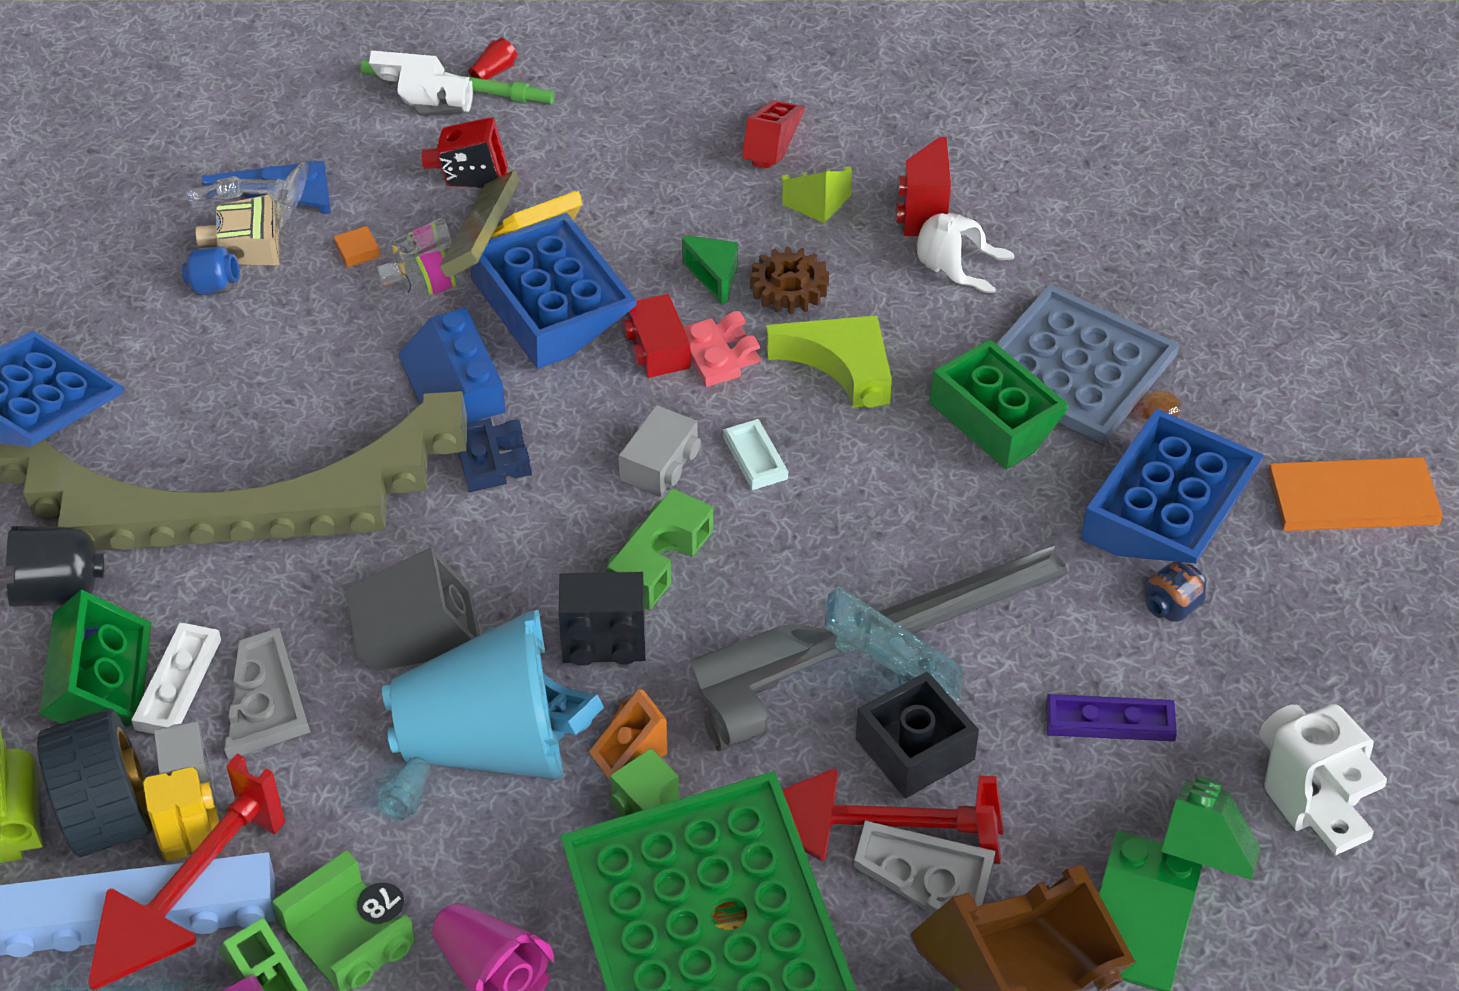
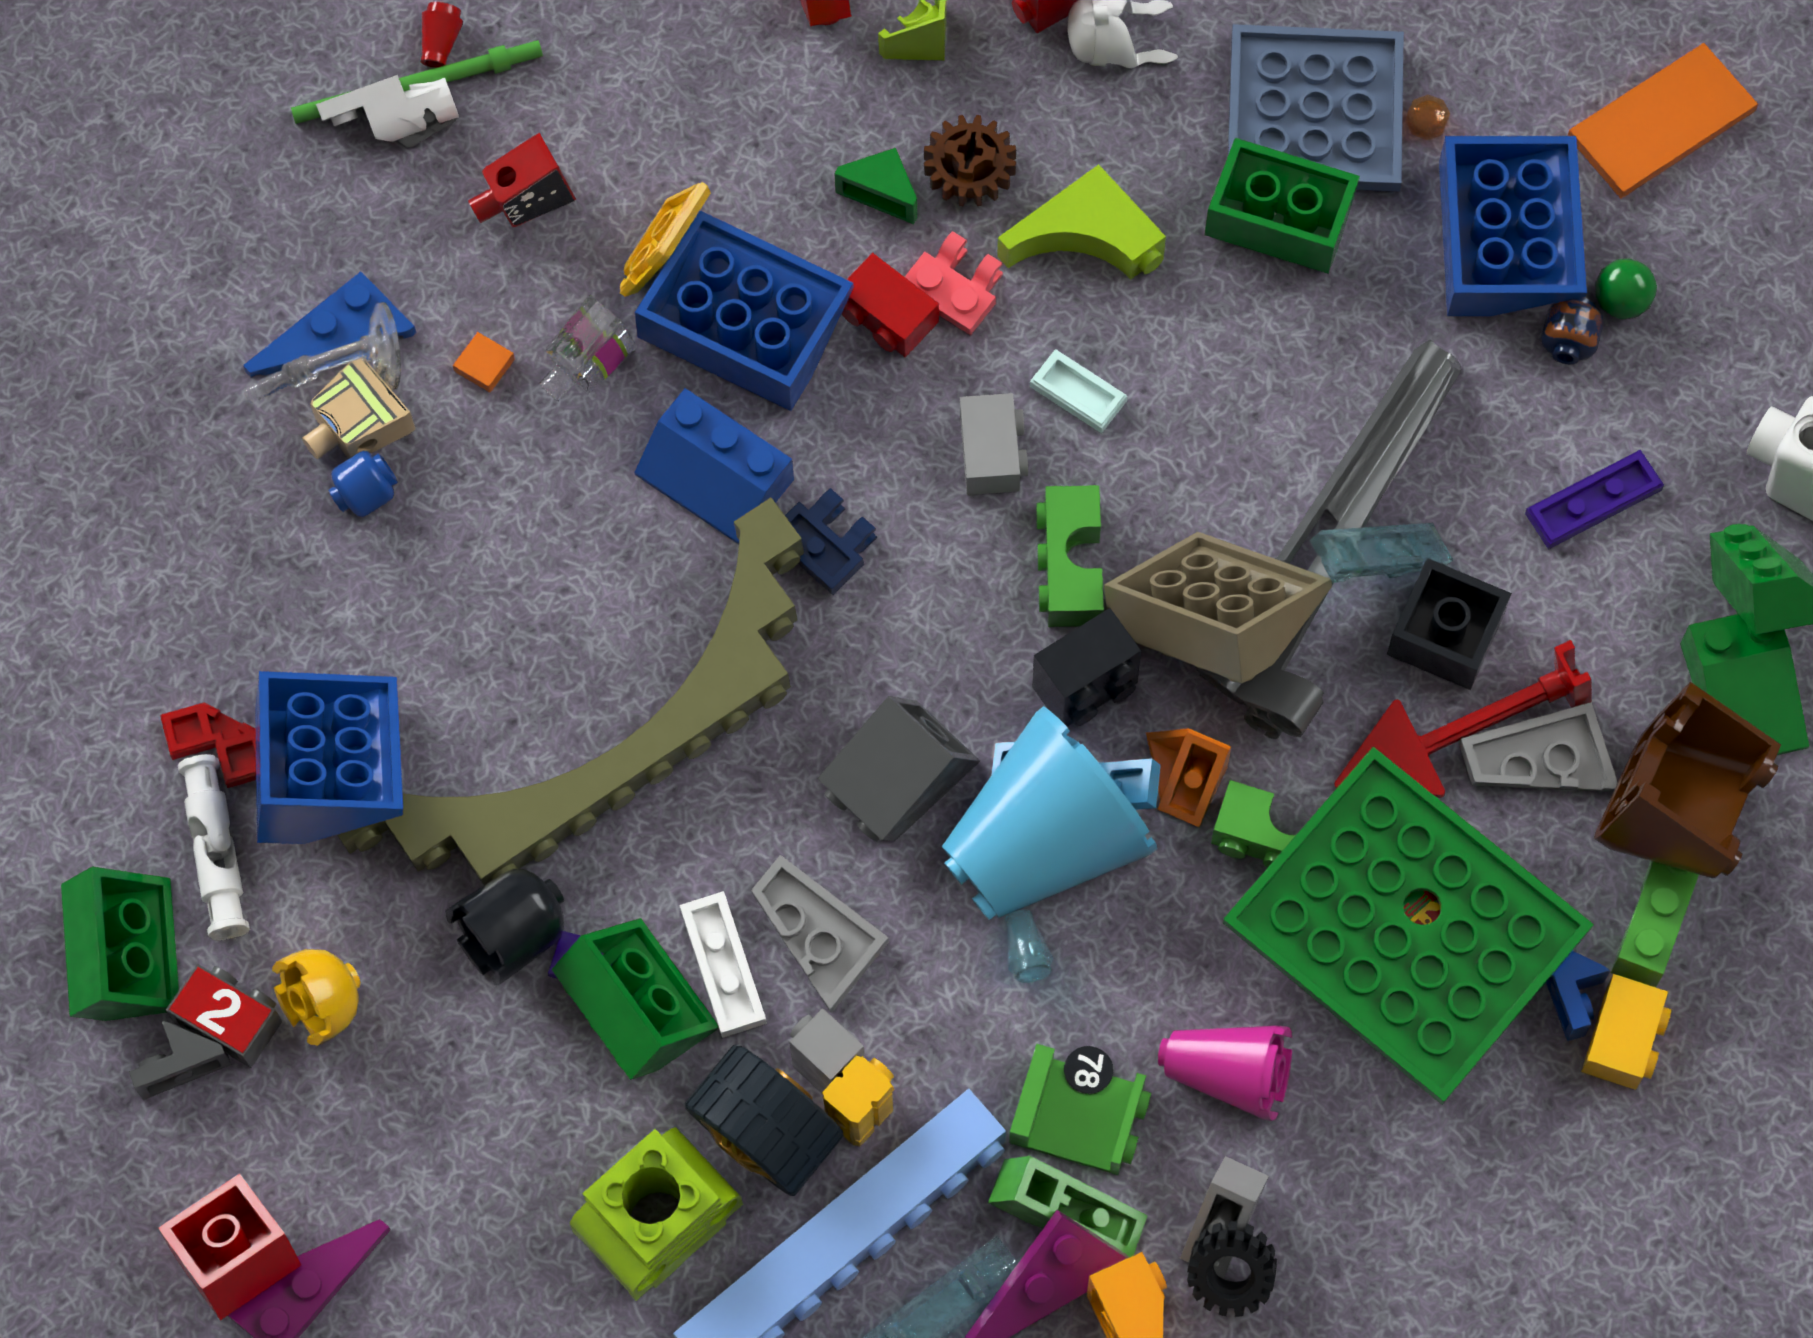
camera: 30 degrees left, 20 degrees up
(139, 934) = (919, 1238): red piece -> none
(480, 224) = (622, 275): olive tile -> none
(729, 619) = (1216, 605): none -> dark tan slope
(1238, 581) = (1625, 288): none -> green piece

